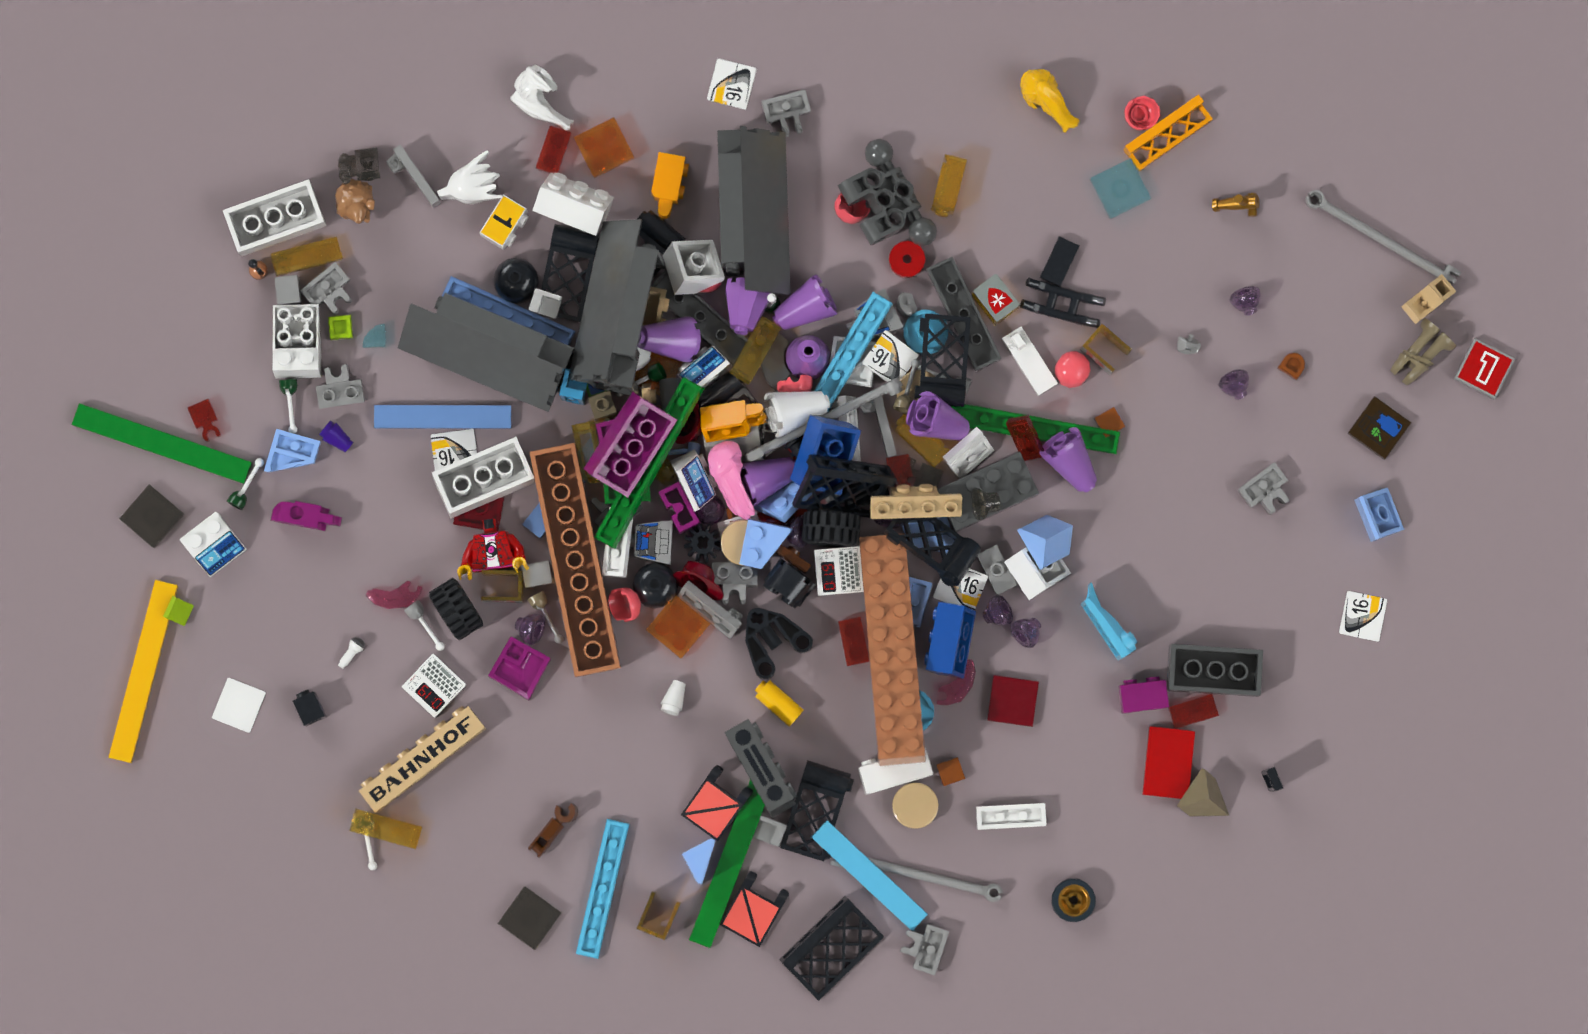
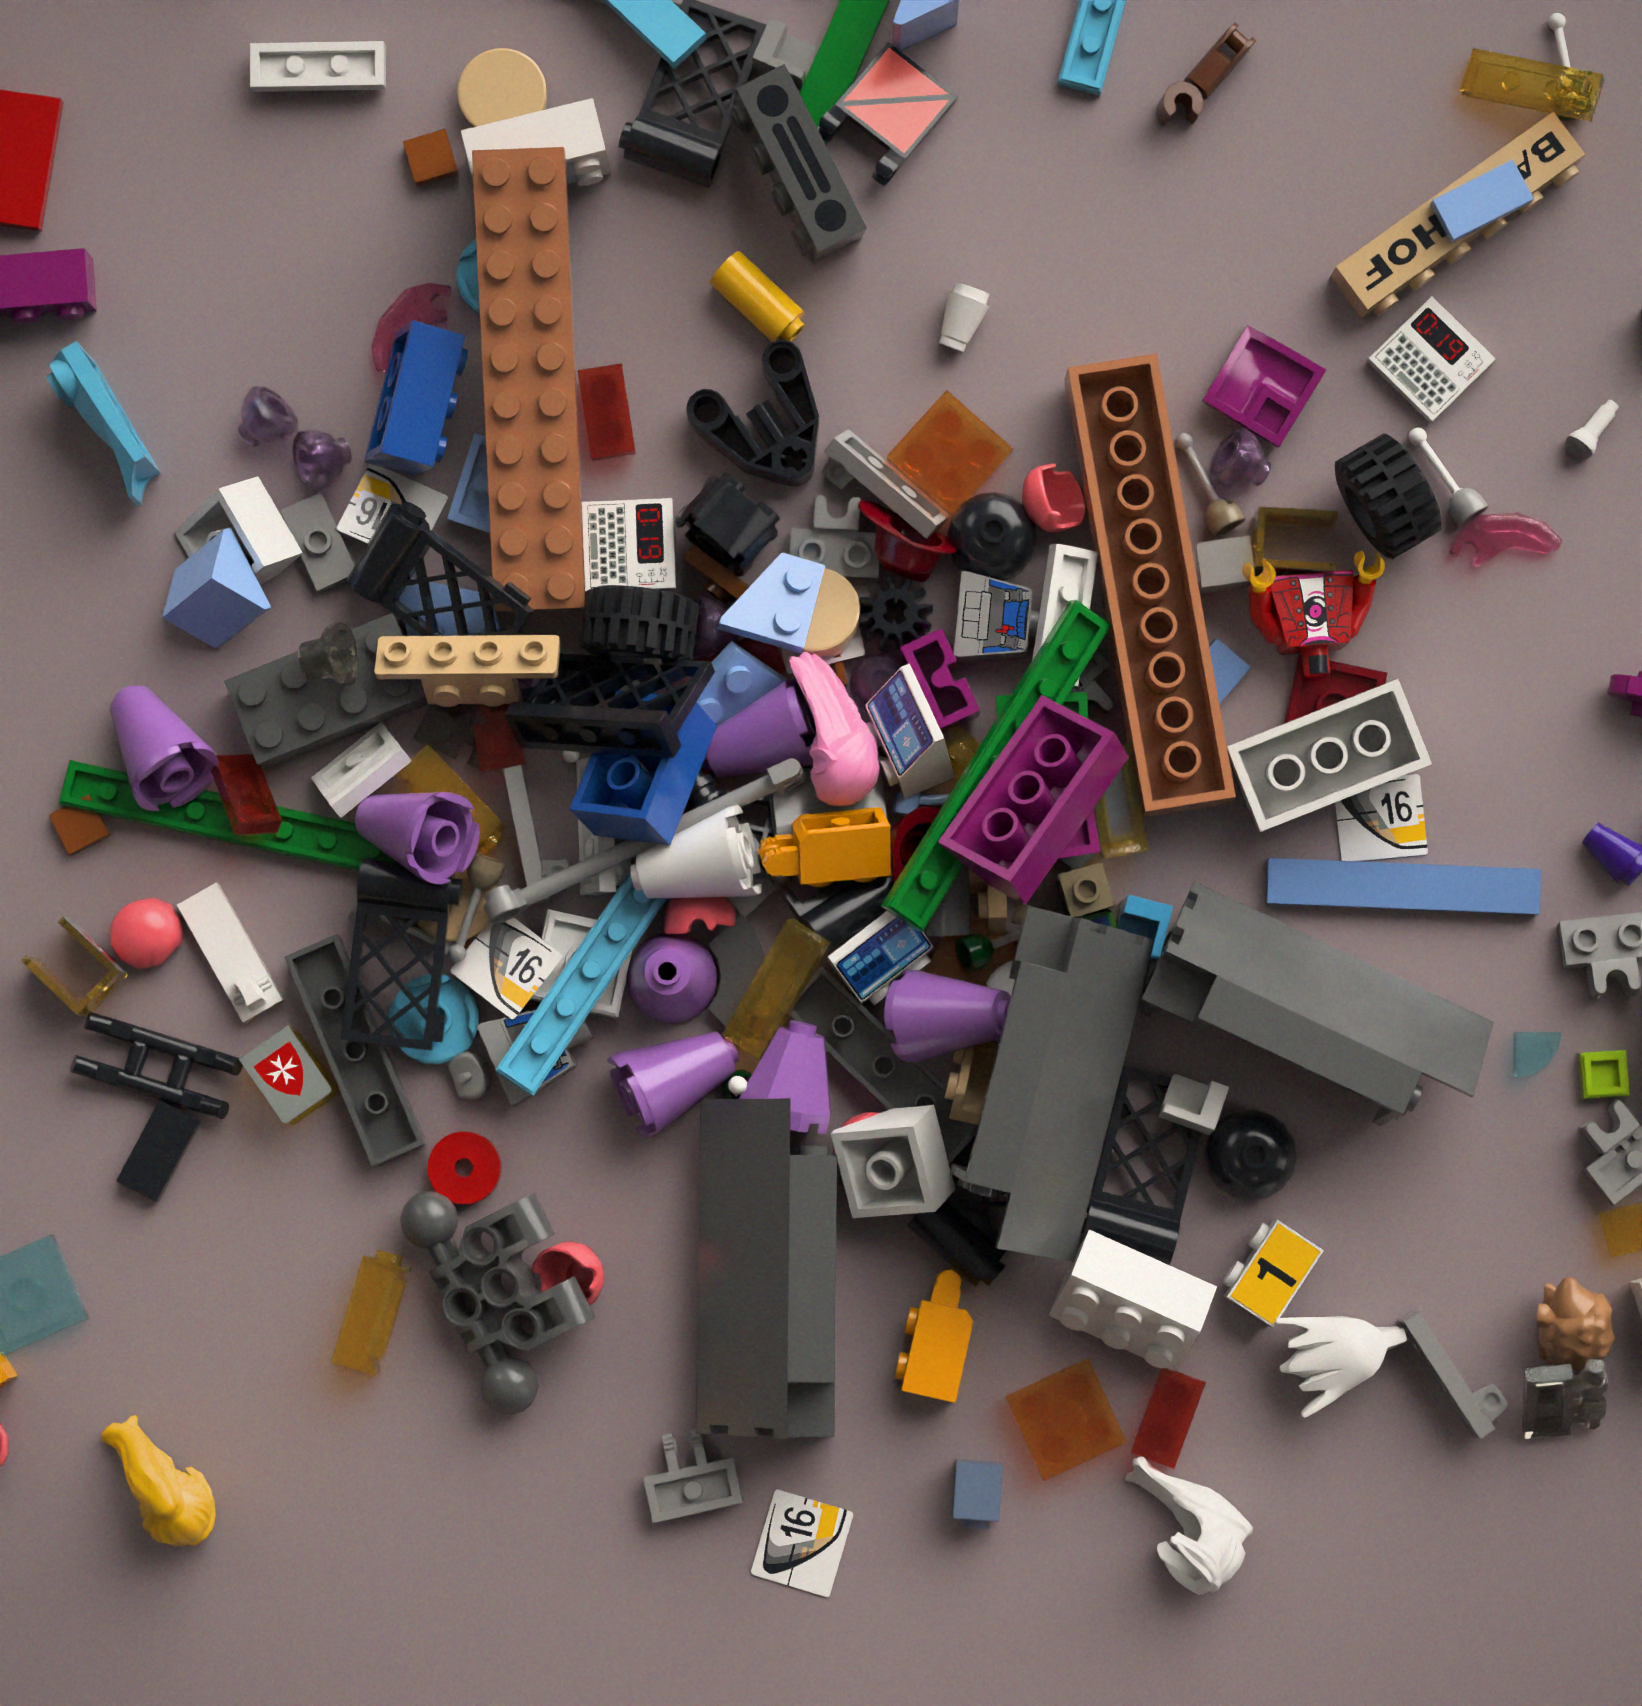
camera: 165 degrees left, 0 degrees up
(411, 763) = (1481, 201): none -> light blue tile
(508, 310) = (1267, 1088): medium blue tile -> none
(646, 110) = (977, 1492): none -> sand blue brick
(1013, 701) = (302, 288): dark red tile -> none

